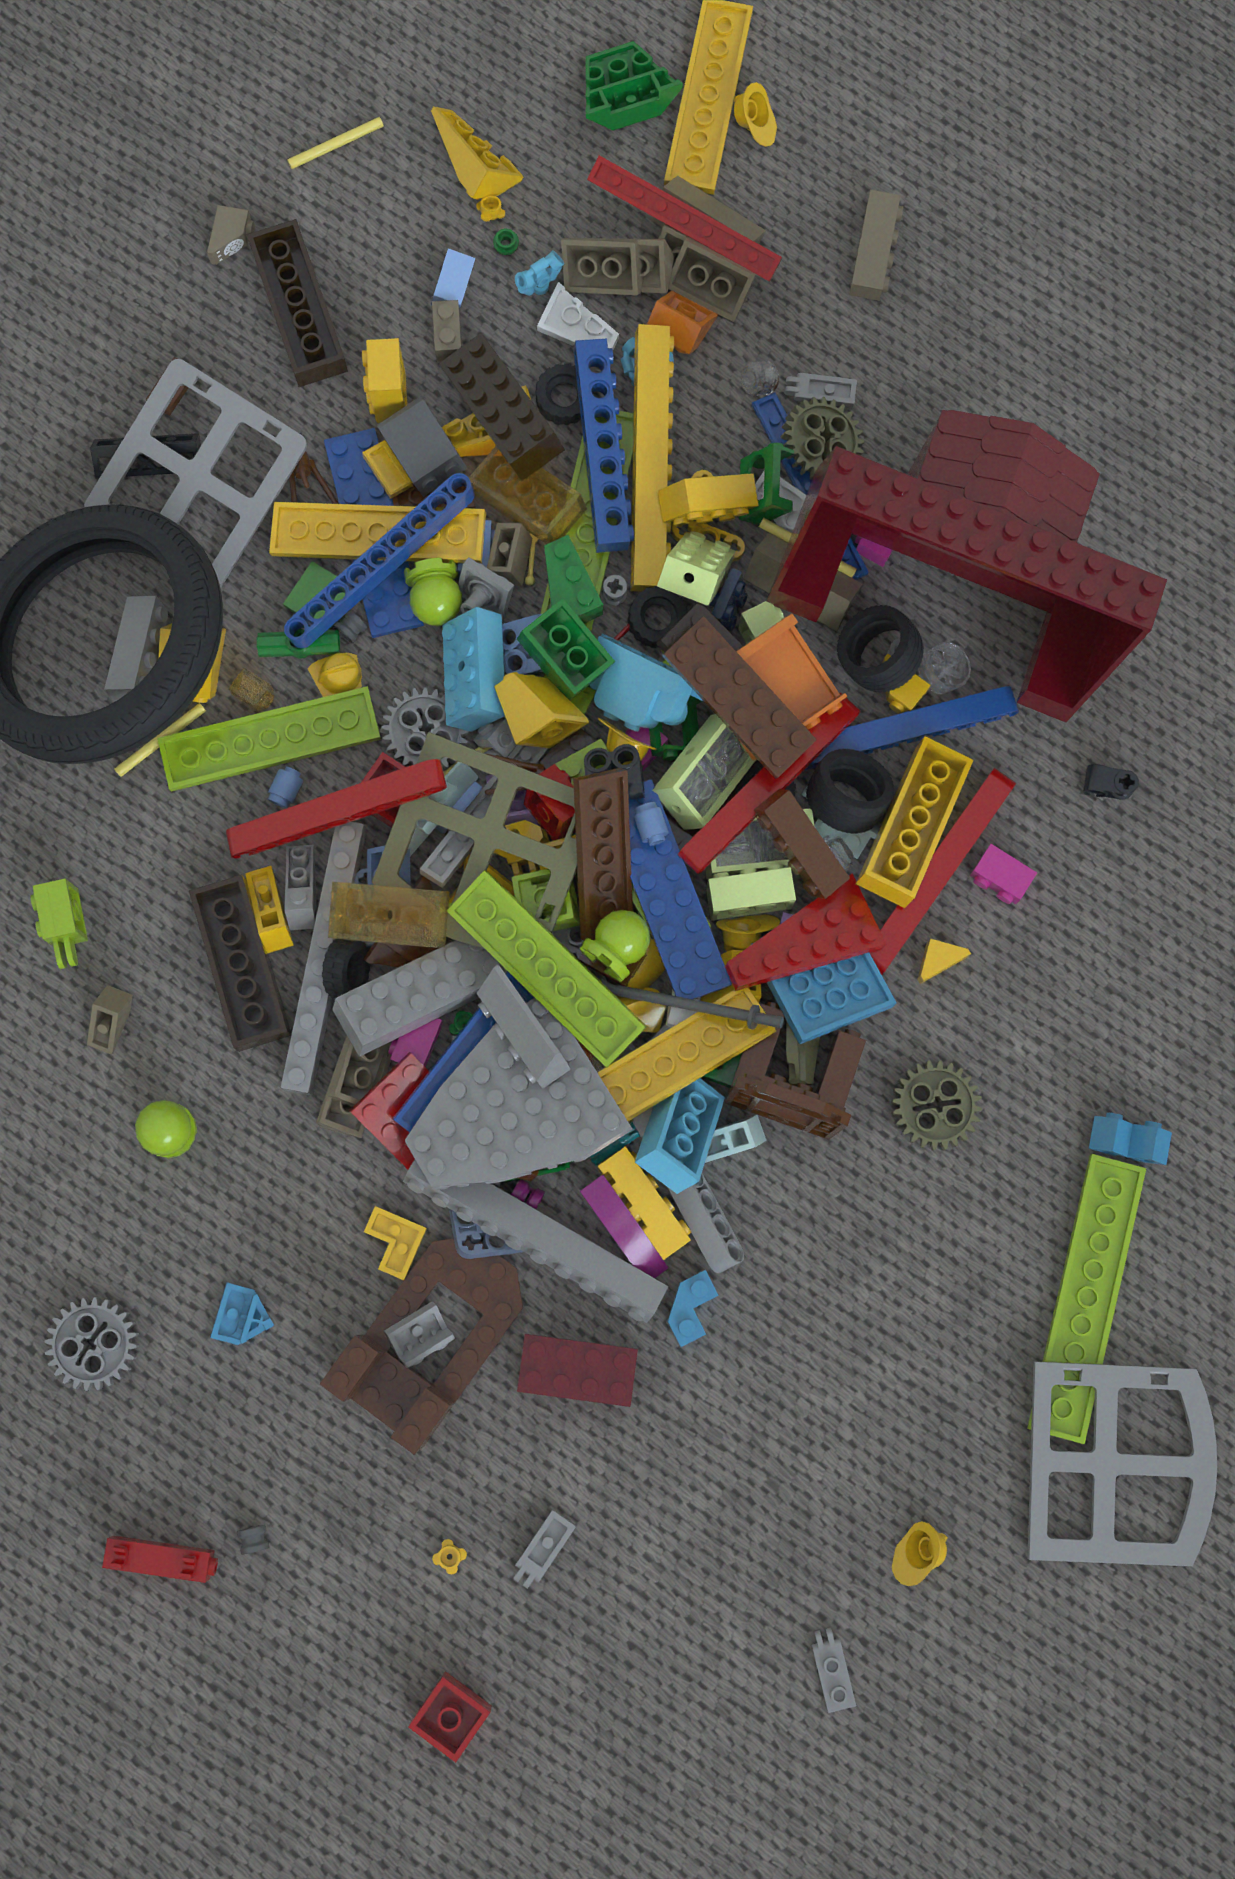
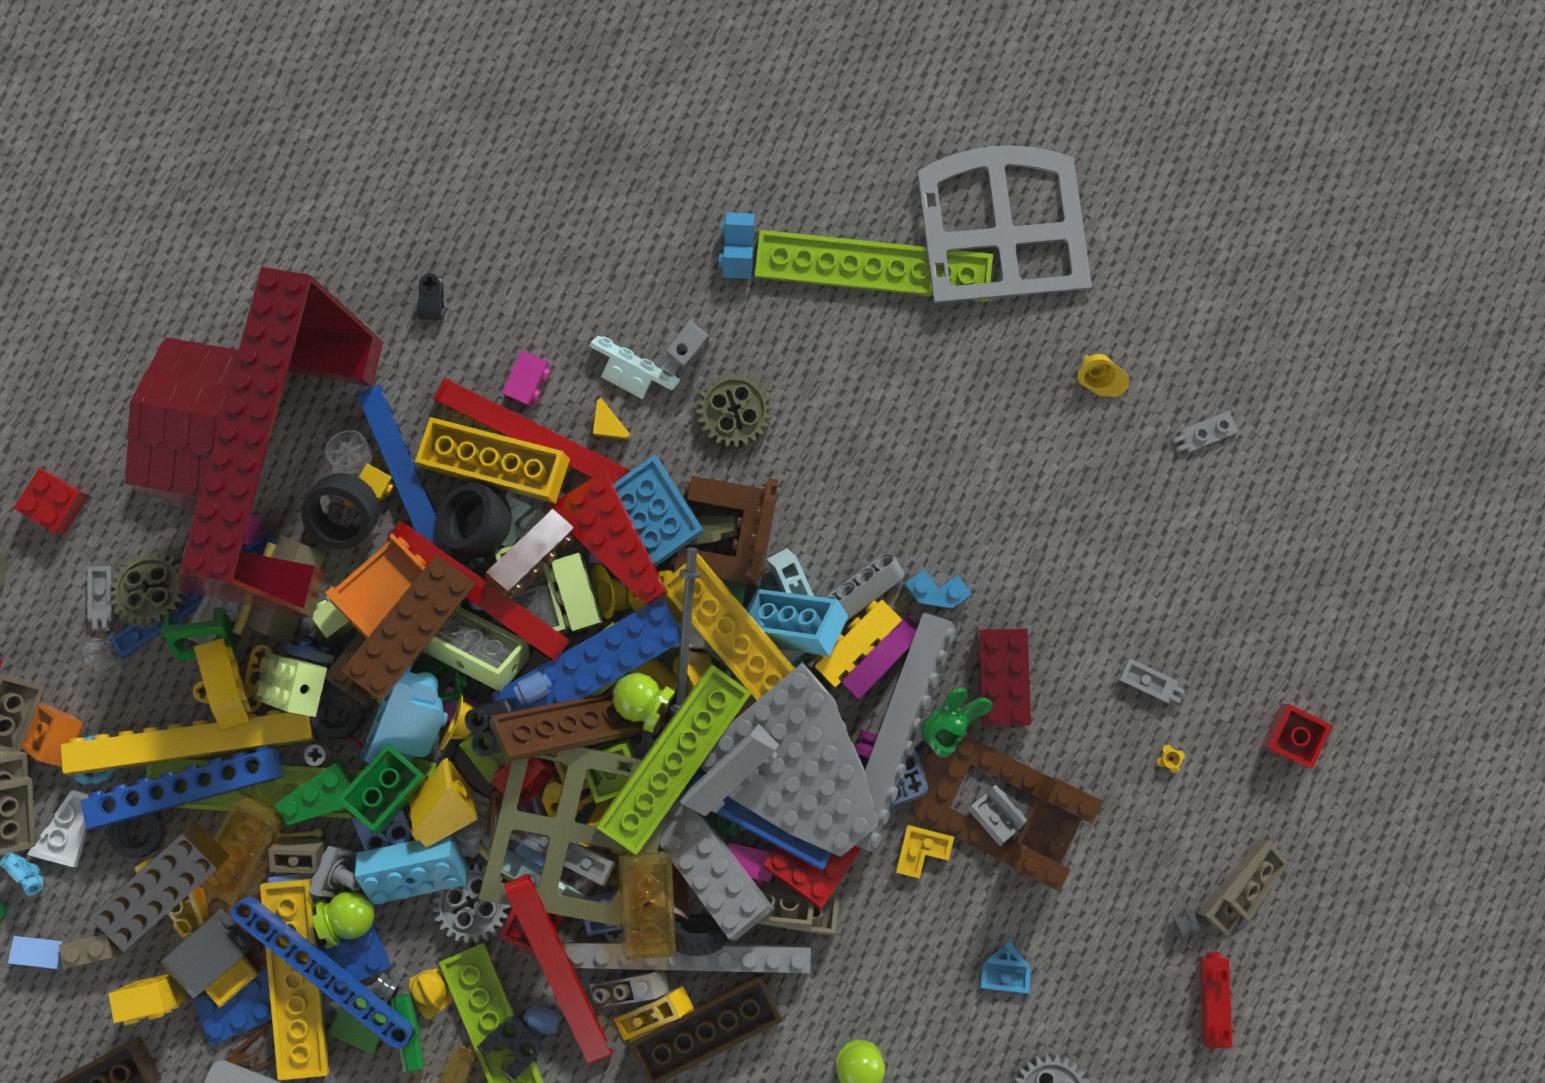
camera: 100 degrees left, 5 degrees up
(265, 753) = (515, 1043): none -> black piece
(283, 1619) = (1244, 887): none -> dark tan slope
(534, 1296) = (950, 723): none -> green piece
(933, 351) = (51, 501): none -> red brick
(997, 994) = (629, 370): none -> light aqua bracket
(1025, 1063) = (690, 340): none -> light grey torso

